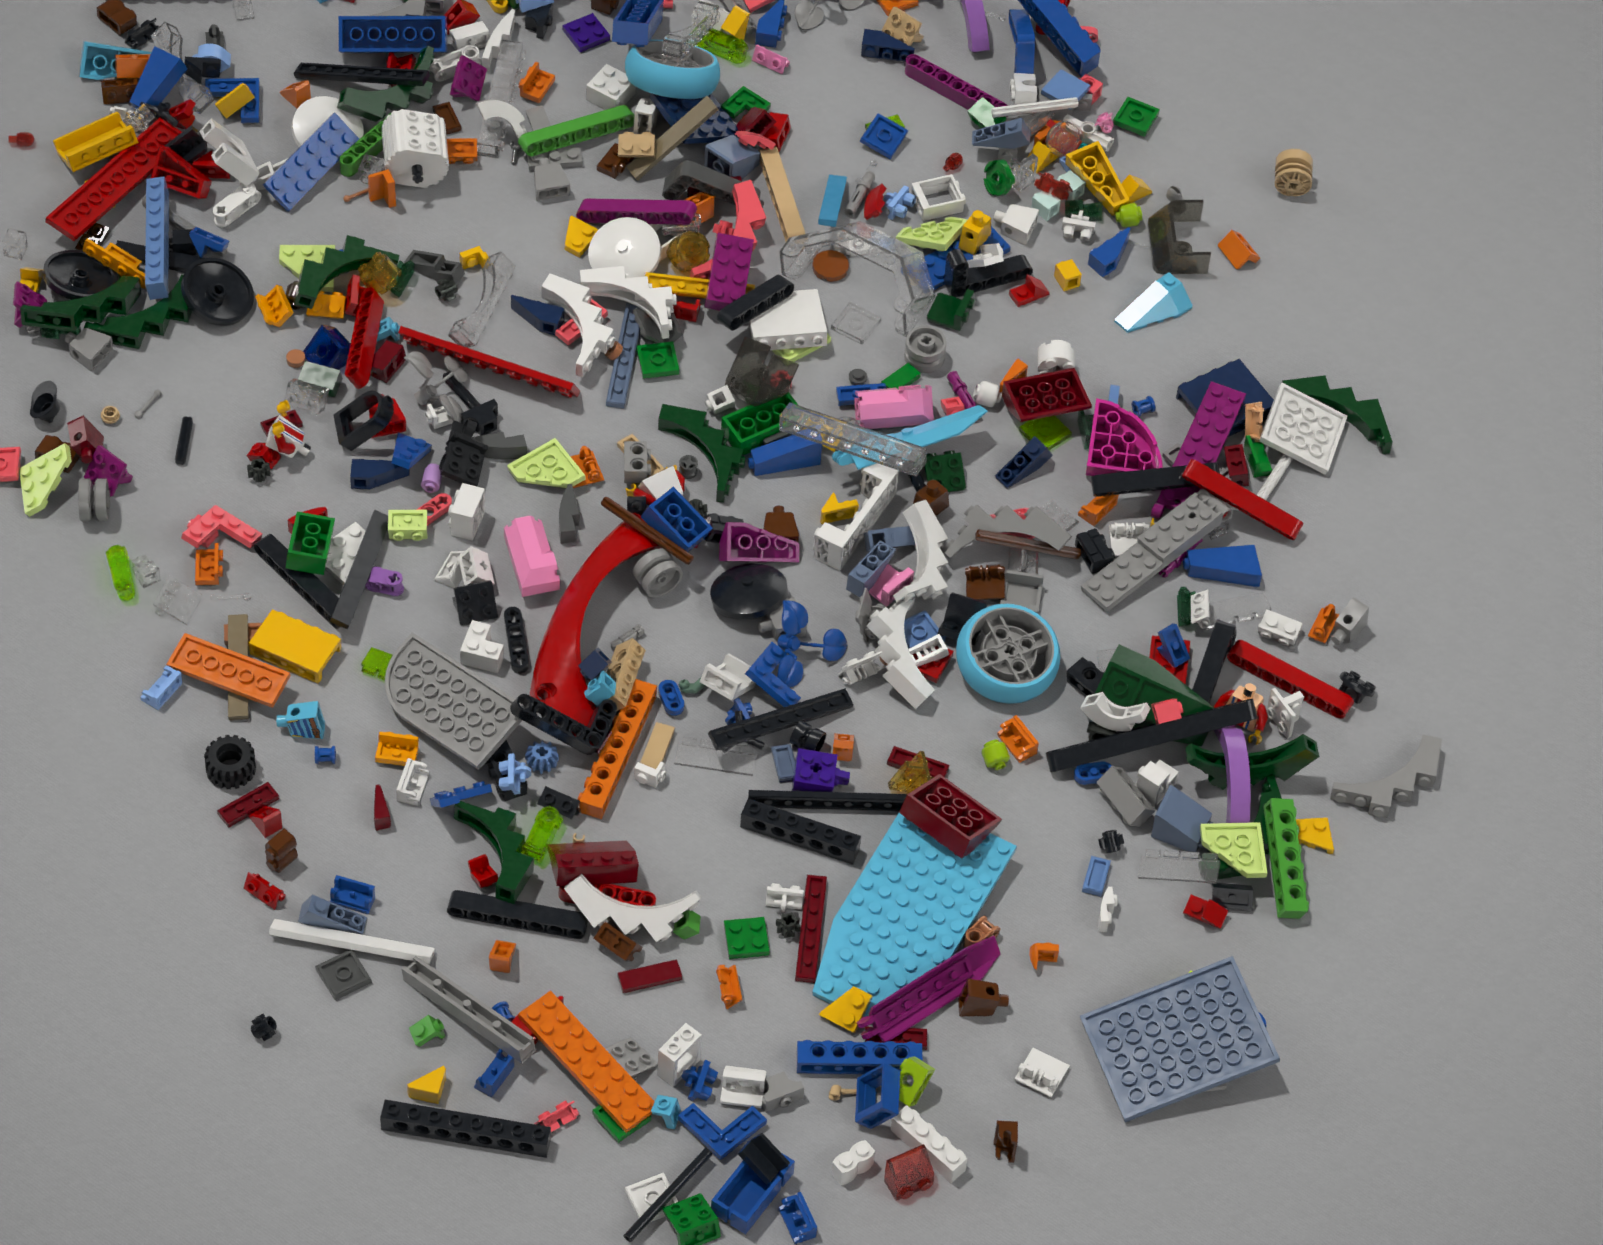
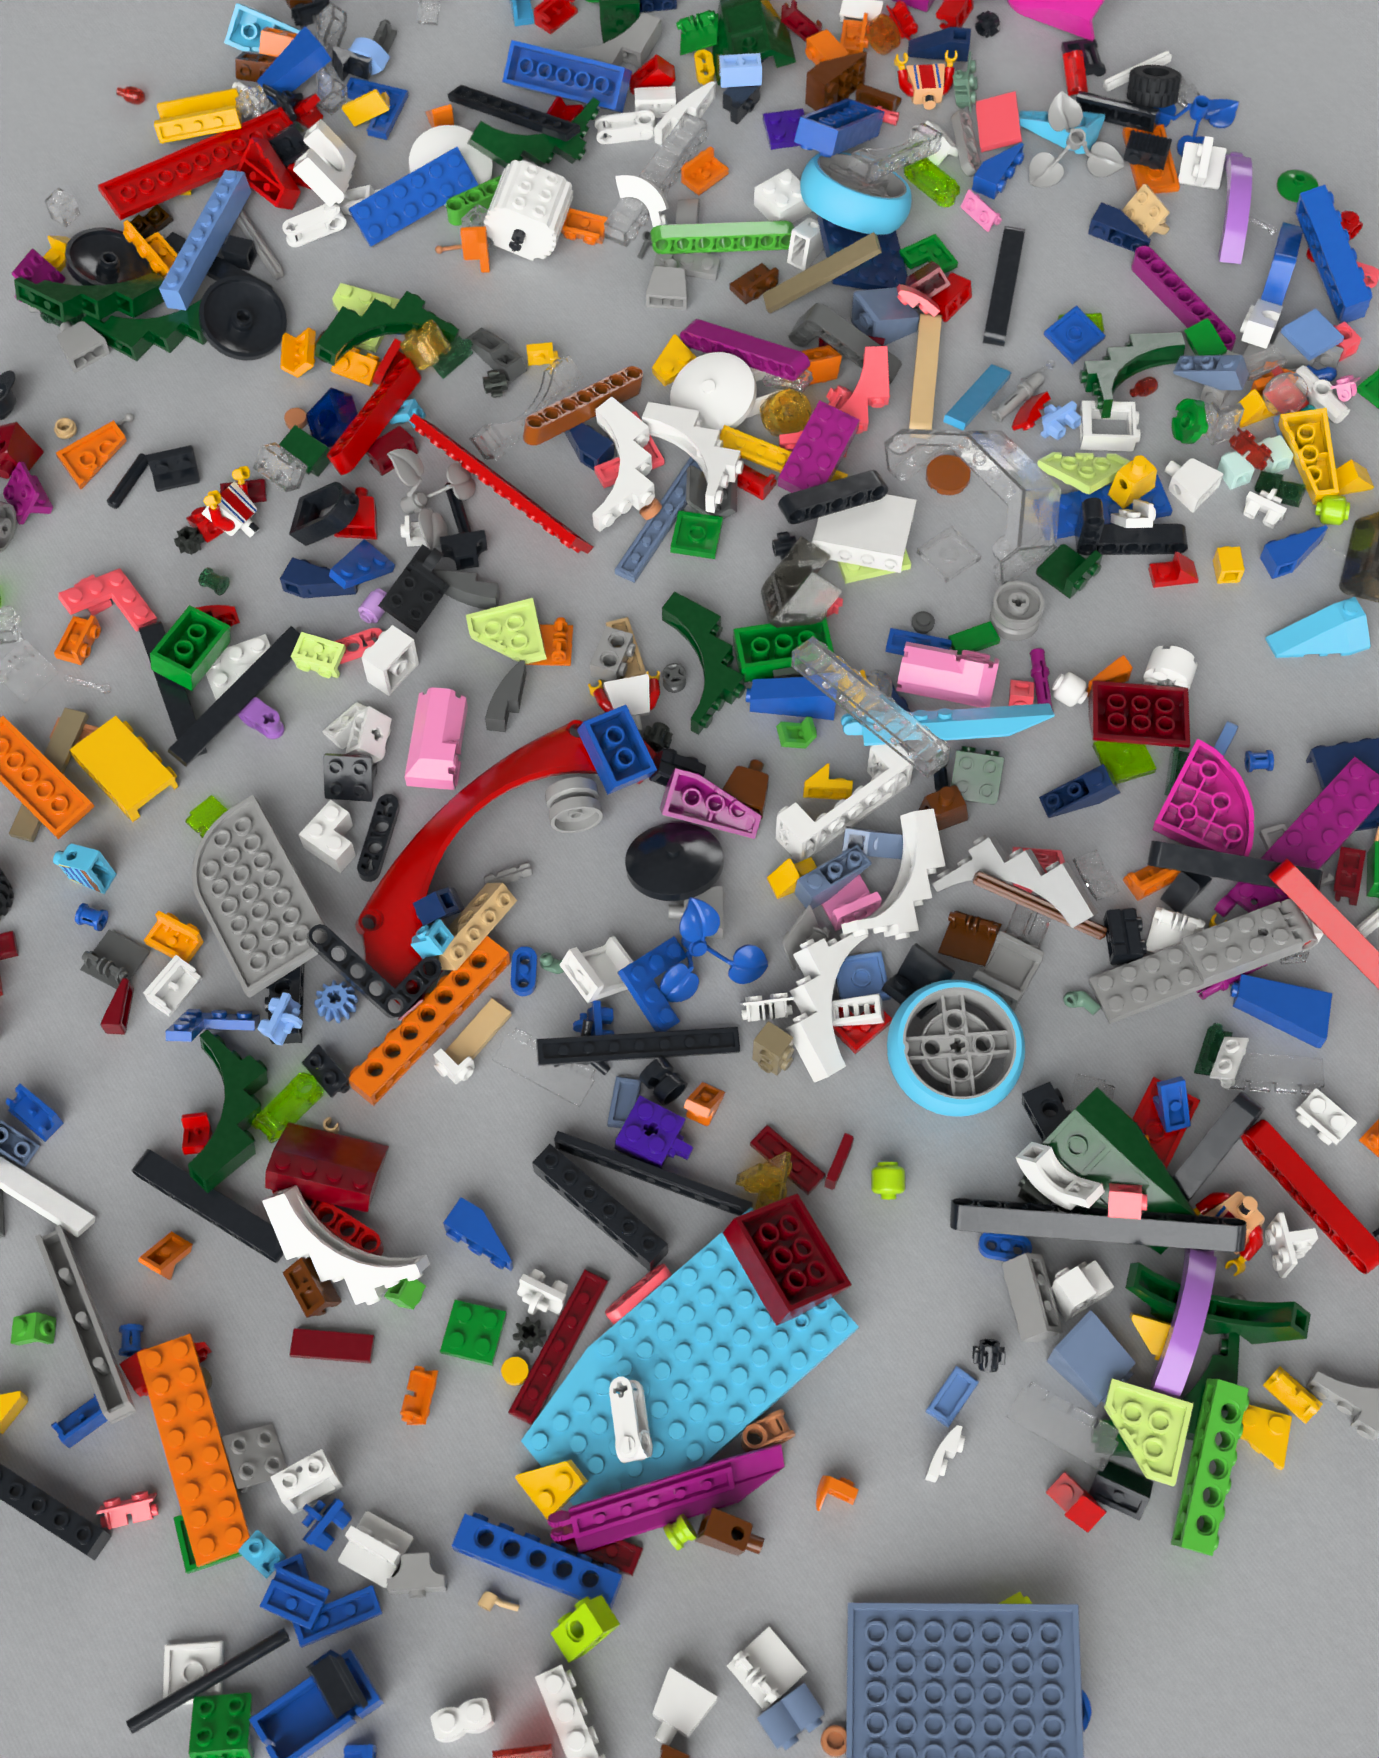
camera: 25 degrees right, 10 degrees up
(142, 427) = (91, 453): none -> orange wing
(203, 240) = (259, 258): blue slope -> none
(217, 420) = (173, 468): none -> black bracket
(294, 495) = (214, 581): none -> clear green bush
(357, 779) = (114, 959): none -> dark grey hinge
(447, 113) = (590, 187): reddish brown tile -> none
(468, 79) = (628, 147): magenta bracket -> none
(528, 286) = (581, 405): none -> dark orange beam
(636, 144) = (778, 271): tan bracket -> none
(636, 504) = (586, 709): black bracket -> none
(647, 530) = (578, 749): reddish brown axle -> none
(705, 1126) = (295, 1598): none -> blue plate
(718, 872) = (472, 1226): none -> blue slope
(722, 394) = (750, 598): white brick -> none
(729, 349) = (783, 544): none -> black gear
(736, 23) = (955, 159): yellow slope -> none
(787, 952) = (515, 1371): none -> yellow tile
(800, 480) = (796, 734): none -> bright green bracket
(814, 112) = (1004, 286): none -> black beam
(836, 579) = (785, 877): none -> yellow slope
(852, 876) = (637, 1293): none -> coral beam
(867, 1111) = (531, 1634): blue window -> none
(879, 693) = (773, 1049): none -> dark tan brick
(886, 947) = (630, 1420): none -> white piece
(929, 148) = (1121, 363): none -> arch
(948, 1009) = (680, 1532): none -> lime wheel
(956, 753) = (839, 1161): none -> dark red tile
(995, 1105) = (680, 1706): none -> white torso
(1018, 739) = (926, 1167): orange hinge -> none
(1034, 107) = (1264, 346): white axle -> none
(1071, 1092) = (790, 1717): none -> sand blue brick
(1081, 601) = (1081, 999): none -> sand green arm
(1085, 116) = (1327, 373): none -> blue arm
(1105, 1099) = (834, 1740): none -> nougat tile
(1125, 507) = (1184, 890): none -> black slope
(1214, 793) = (1152, 1331): none -> yellow slope
(1322, 805) = (1292, 1395): none -> yellow hinge

